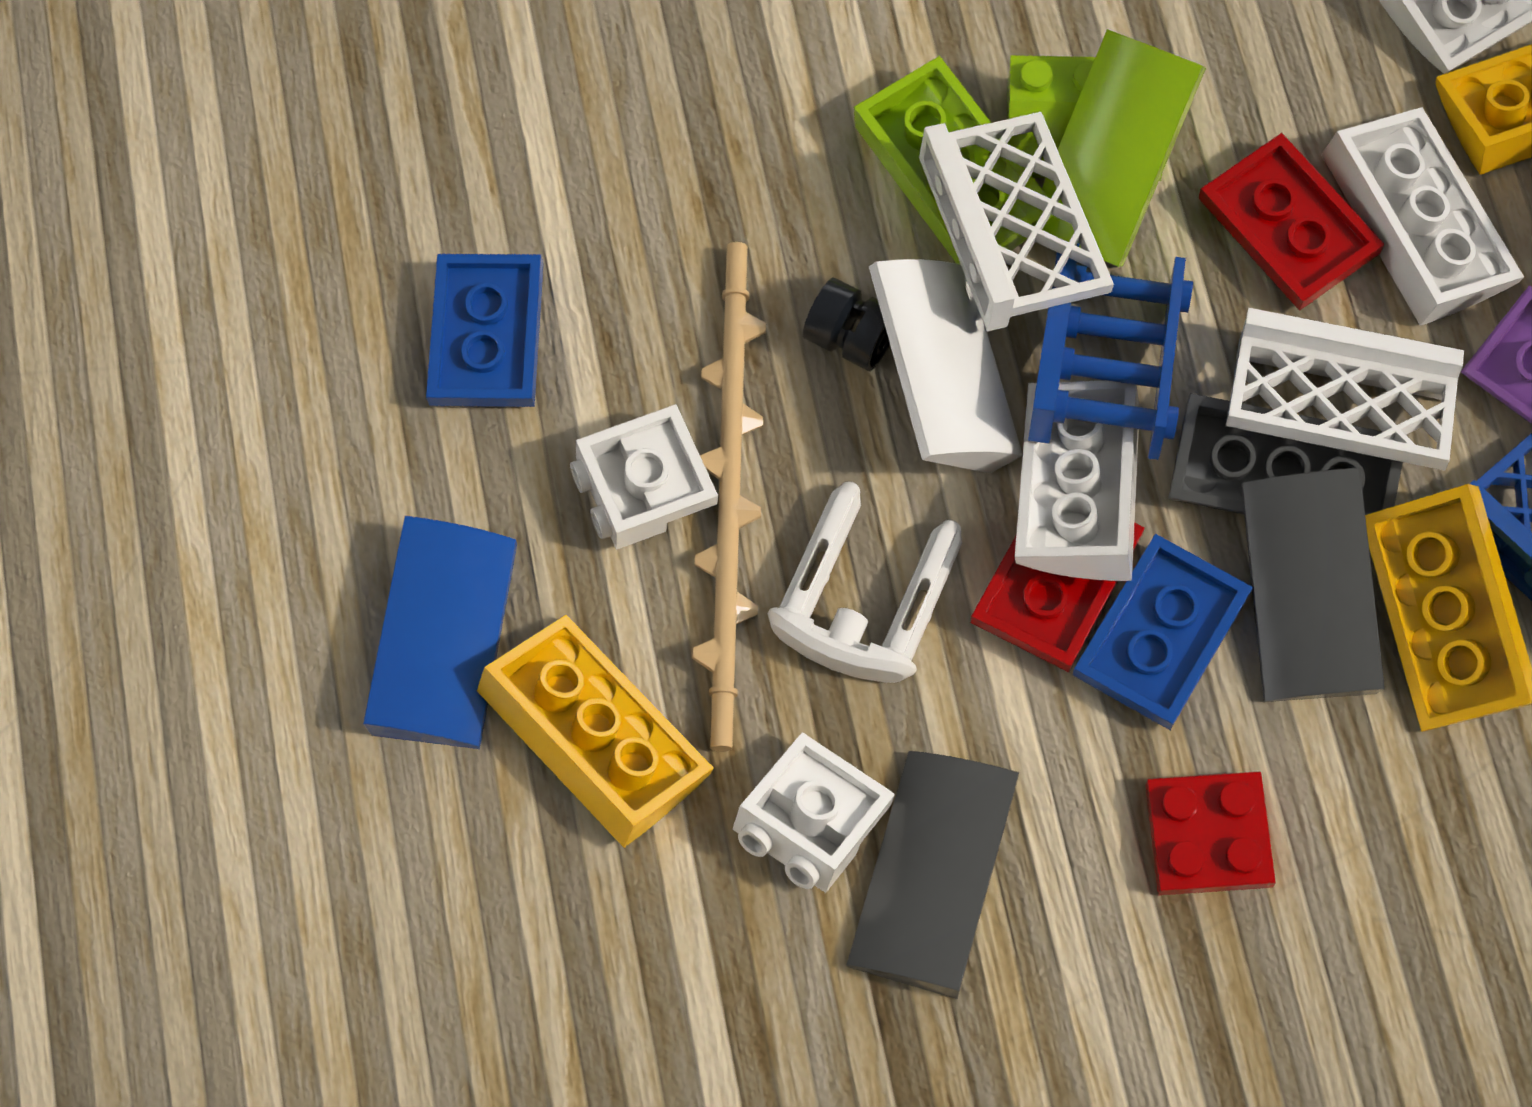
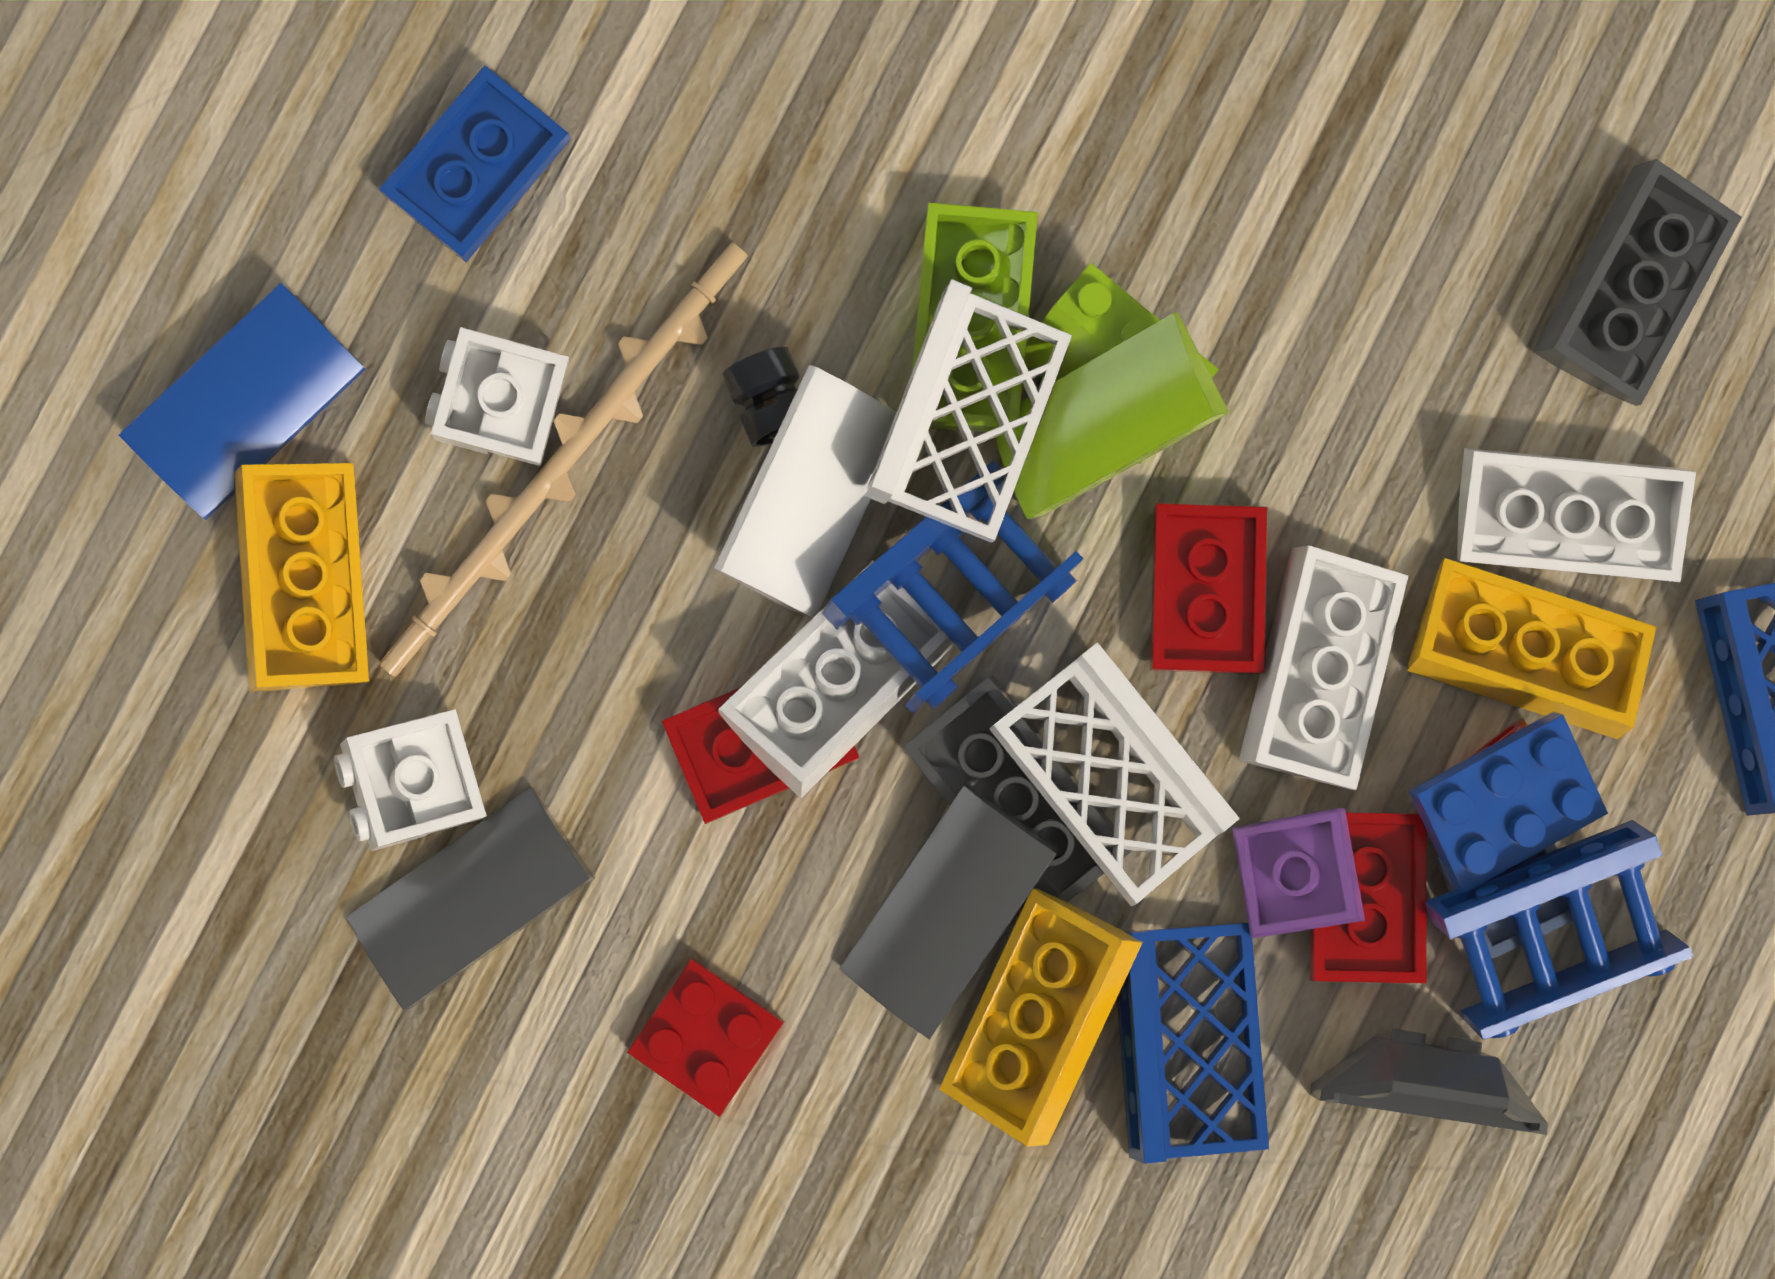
camera: 30 degrees right, 15 degrees up
(840, 645) = (543, 660): white piece -> none
(1162, 631) = (803, 851): blue plate -> none

